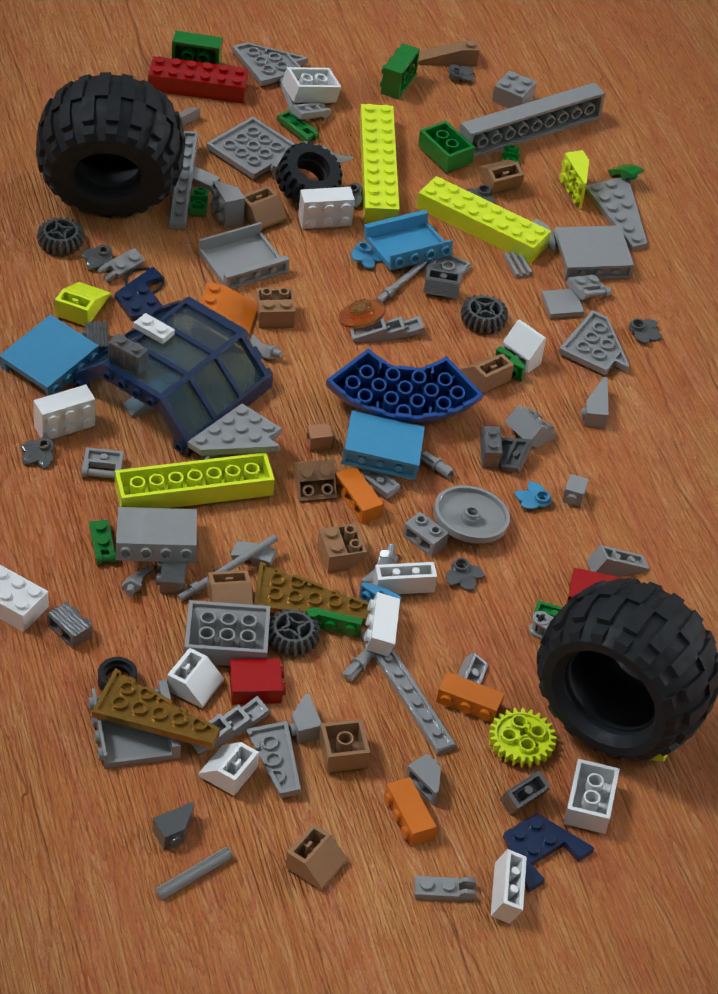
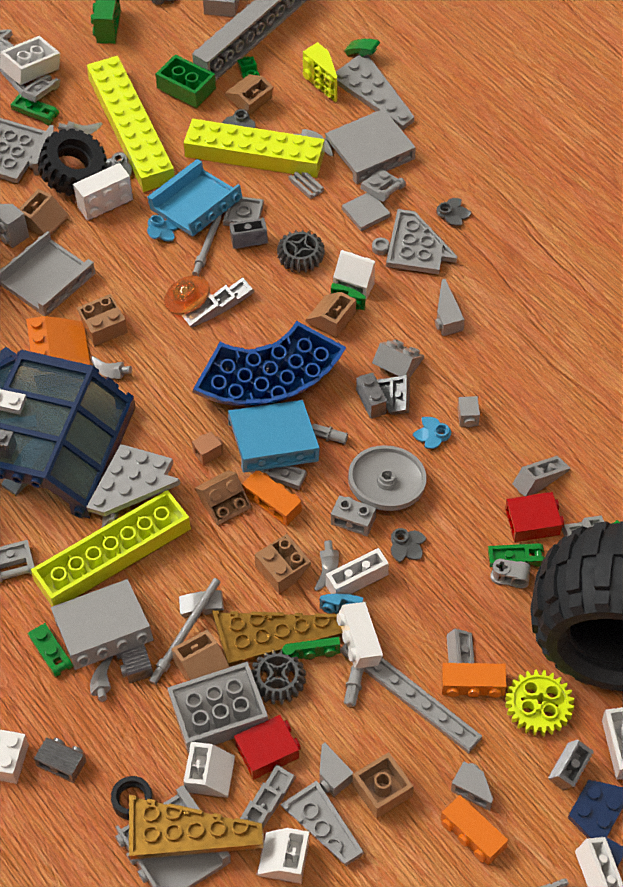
camera: 15 degrees left, 10 degrees up
(561, 335) = (380, 246): none -> light grey tile

